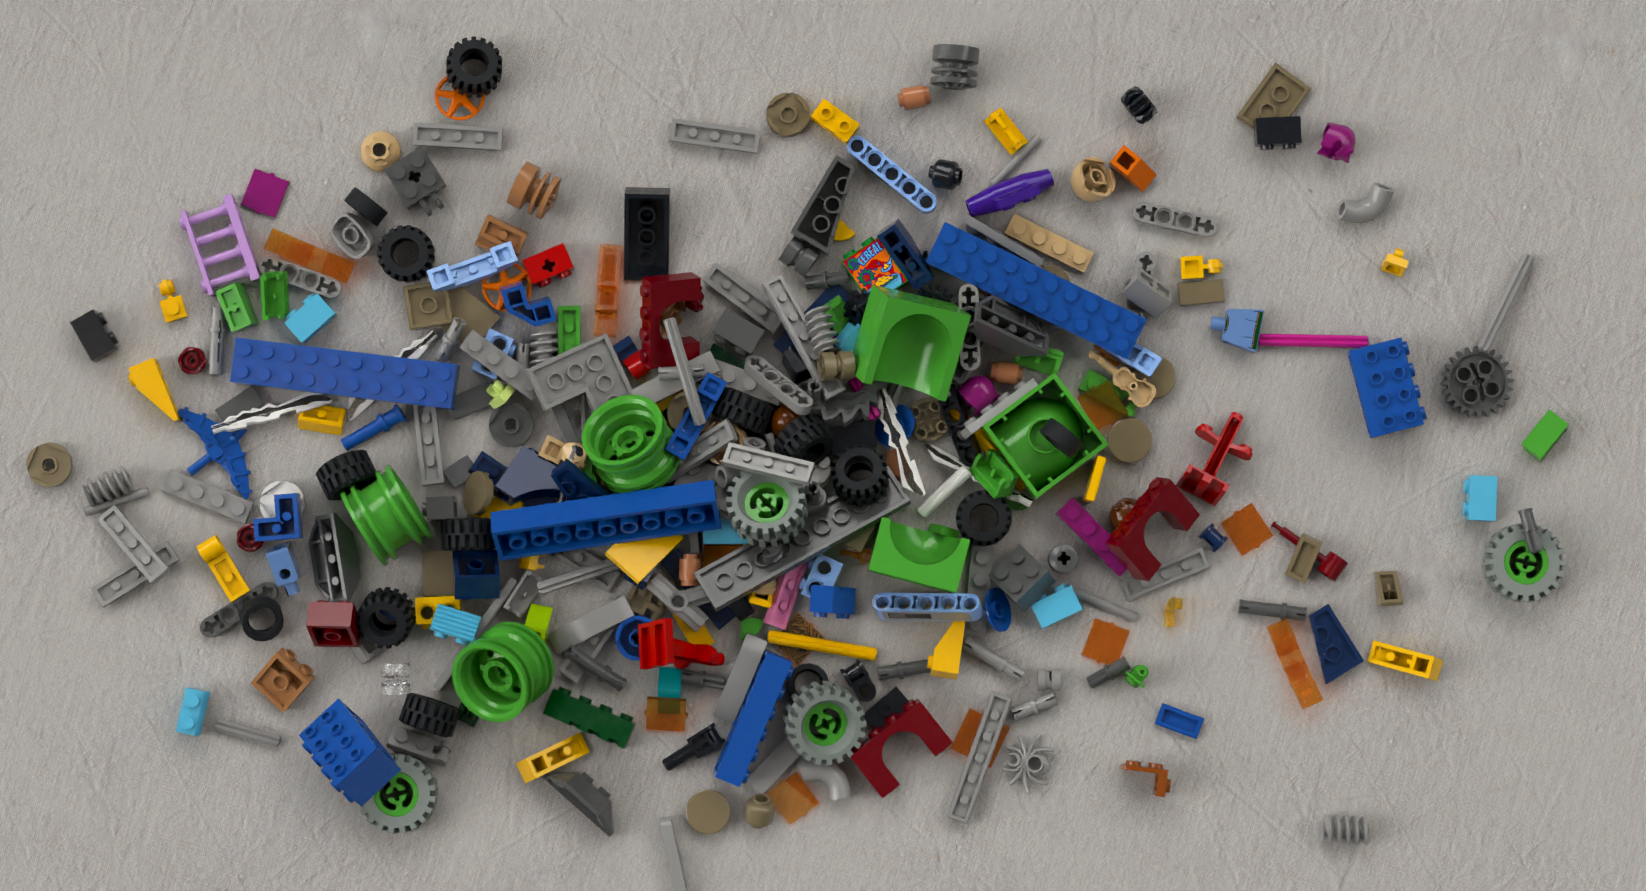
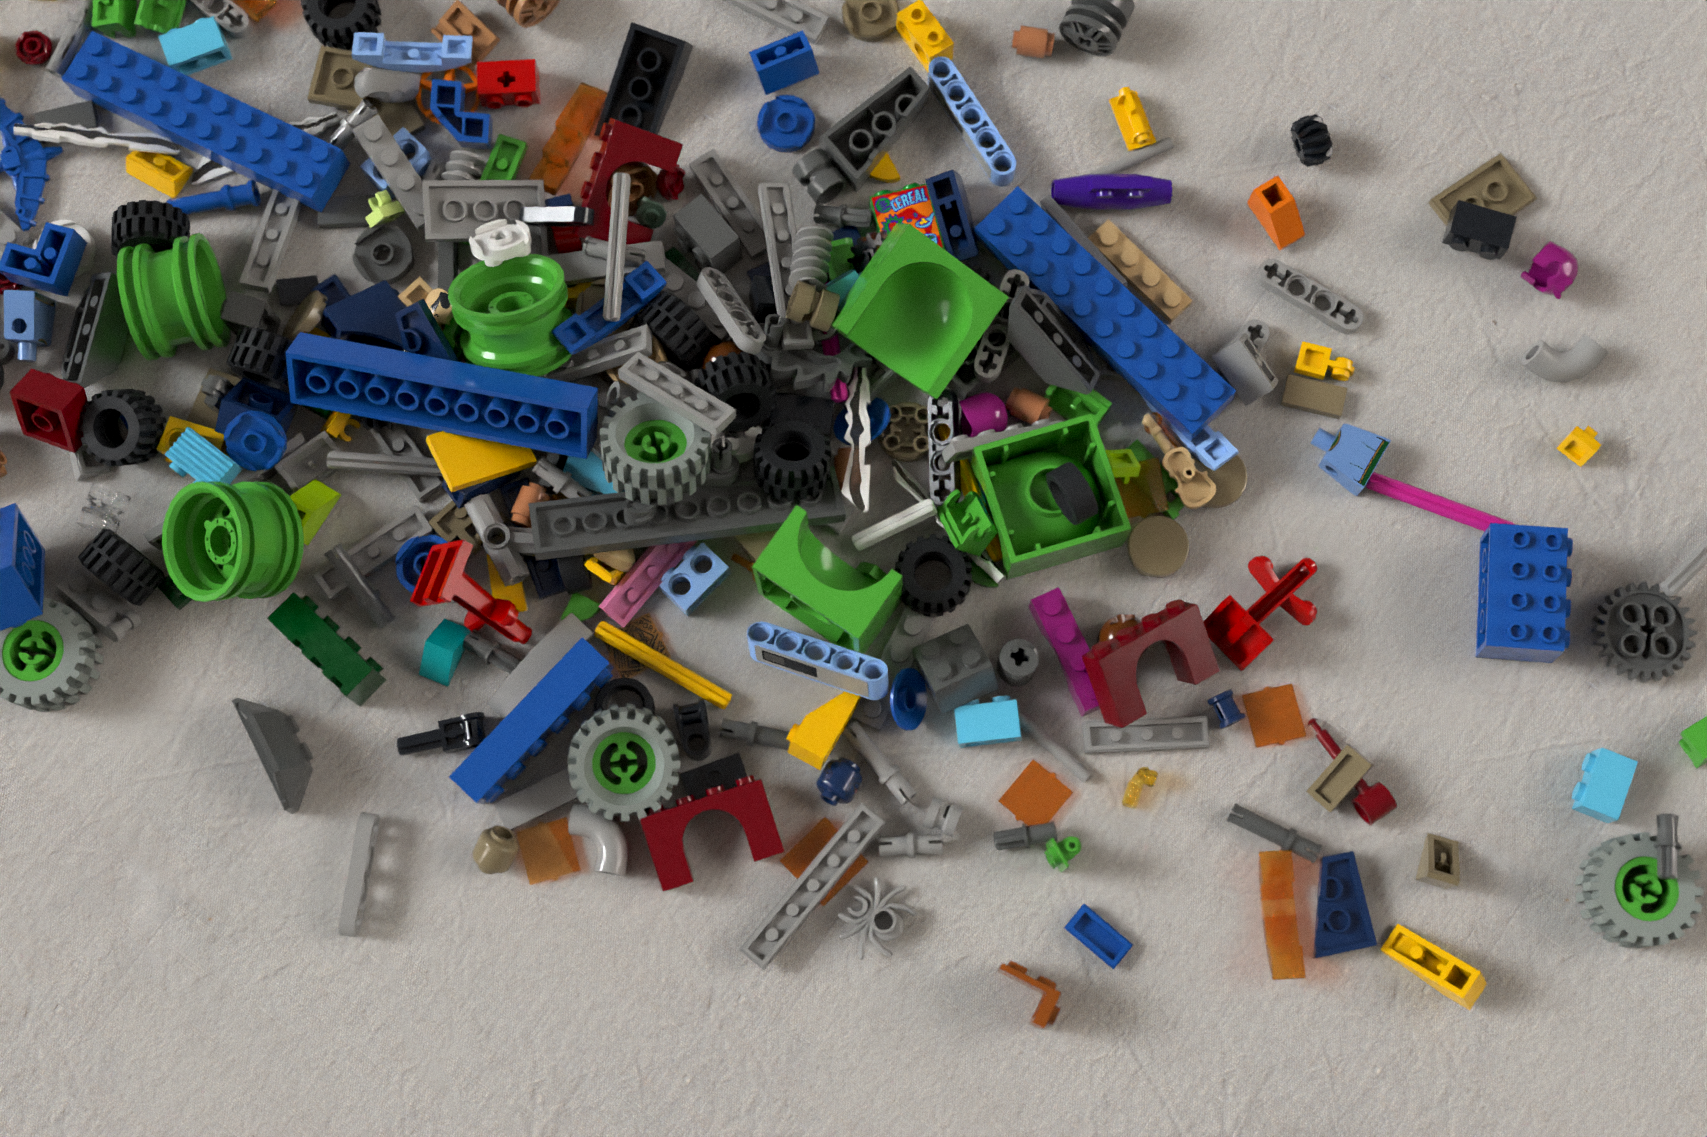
camera: 25 degrees right, 10 degrees down
(443, 569) = (215, 390): none -> dark grey plate
(465, 300) = (387, 85): none -> light grey piece
(486, 596) = (255, 440): none -> blue tile
(552, 757) = (258, 682): yellow slope -> none
(590, 624) = (378, 528): light grey slope -> none
(599, 404) = (500, 241): none -> white plate
(631, 361) = (557, 216): none -> beam
(666, 714) = (426, 679): clear orange piece -> none
(689, 326) = (650, 213): none -> sand green plate
(706, 546) = (560, 480): none -> light grey pin
(708, 811) = (429, 827): dark tan tile -> none
(742, 180) = (784, 62): none -> blue brick
(752, 222) = (786, 132): none -> blue tile
(832, 600) = (694, 605): blue brick -> none
(945, 174) = (1039, 143): black head -> none
(971, 681) = (839, 781): none -> dark blue head
(1085, 395) = (1123, 464): none -> lime tile
(1092, 180) = (1220, 208): tan cylinder -> none
(1094, 479) = (1095, 571): yellow tile -> none

